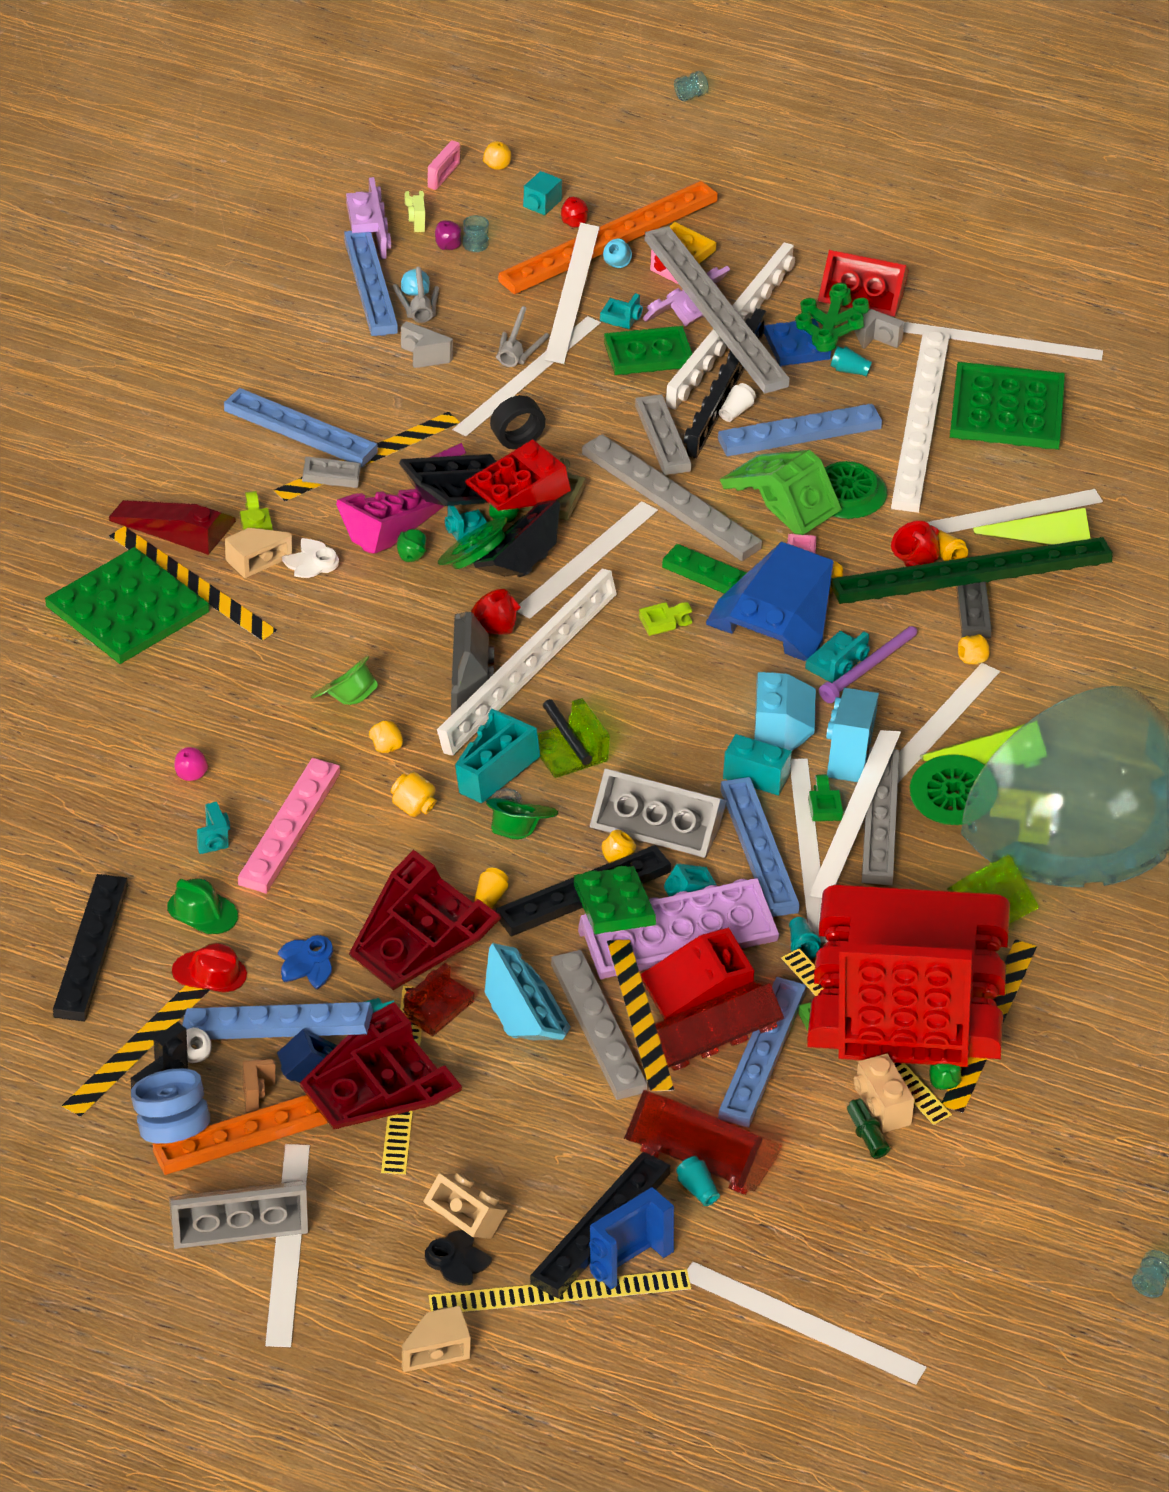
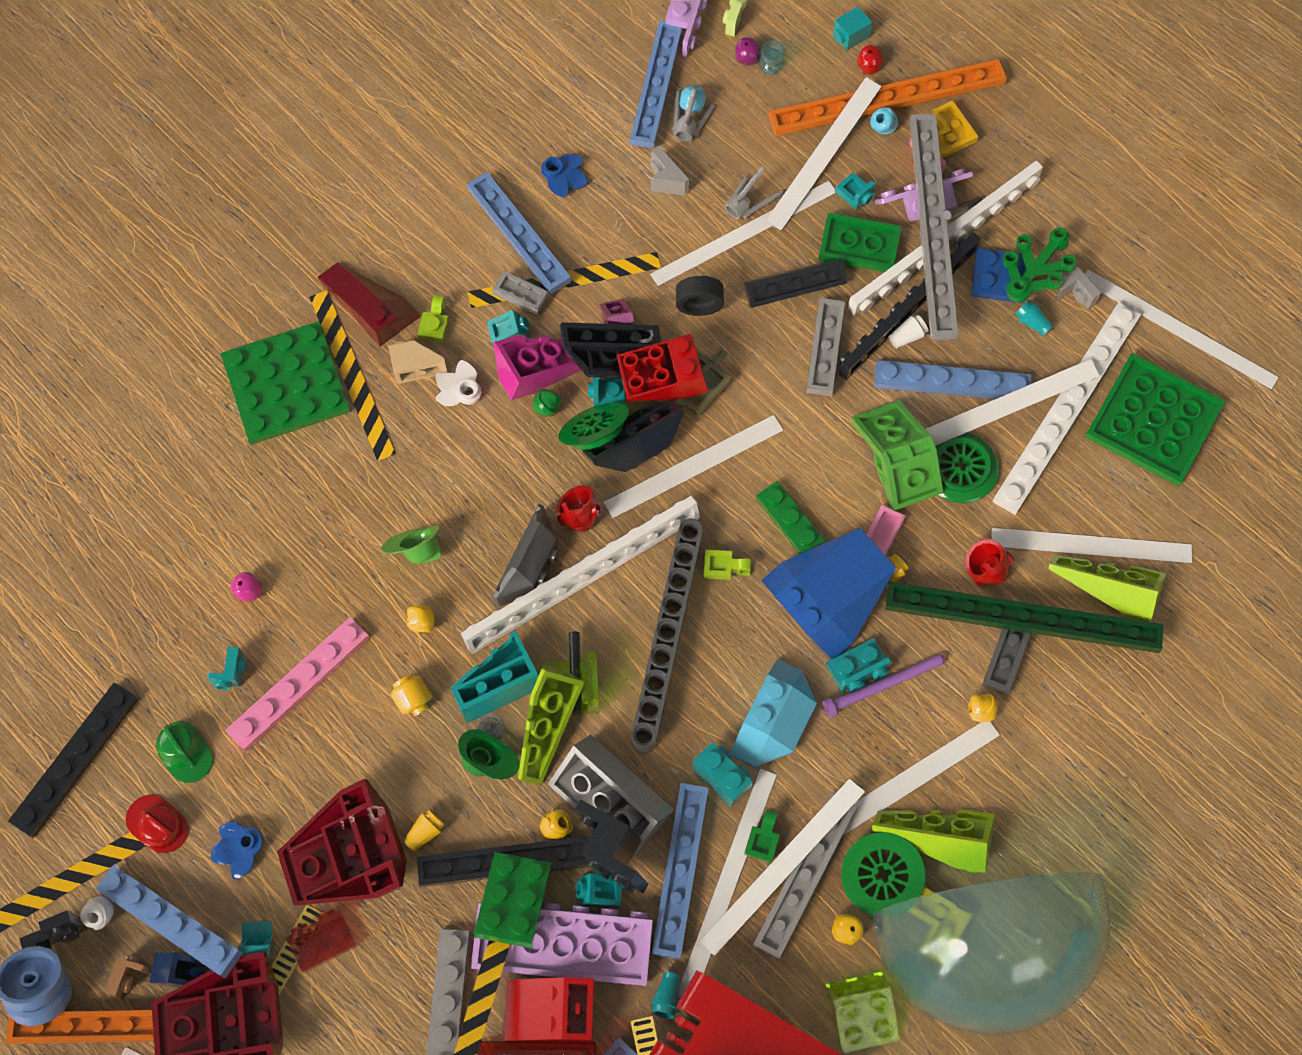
camera: 25 degrees right, 25 degrees up
(317, 374) = (566, 176): none -> blue plate
(327, 499) = (508, 325): none -> teal bracket
(522, 997) = (389, 981): medium azure wedge -> none
(564, 752) = (547, 718): none -> lime wedge
(604, 394) = (795, 282): none -> black plate
(641, 683) = (667, 646): none -> dark grey beam
(672, 497) = (801, 422): light grey plate -> none
(693, 833) = (611, 848): none -> black bracket
(729, 292) = (961, 208): none -> black bar
(851, 733) = (824, 768): medium azure wedge -> none
(867, 278) = (1093, 229): red slope -> none
(876, 419) = (1013, 402): none -> white sticker
(944, 840) = (847, 929): none -> yellow piece
(951, 547) = (1020, 575): yellow cone -> none

